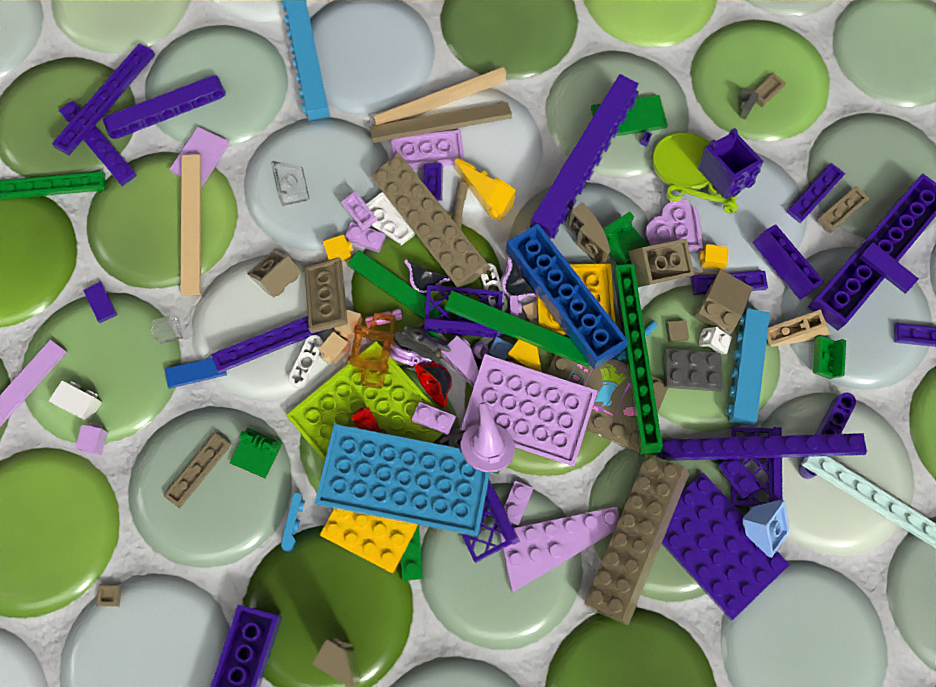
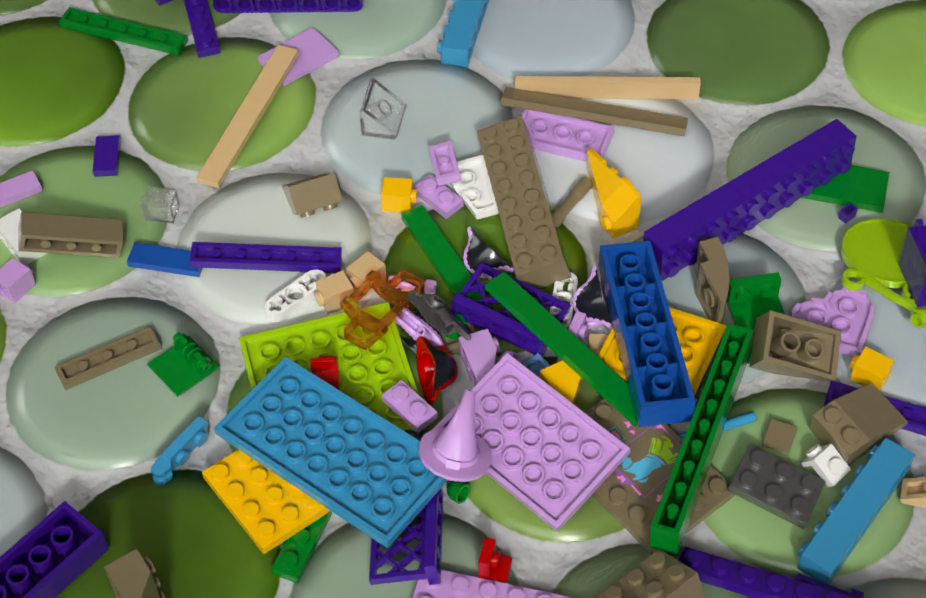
camera: 30 degrees right, 20 degrees down
(115, 387) = (70, 235): none -> dark tan brick
(325, 295) = (356, 233): dark tan tile -> none
(434, 179) = (552, 164): dark purple plate -> none
(517, 501) = (463, 545): lavender plate -> none
(546, 509) = (492, 564): none -> red bracket

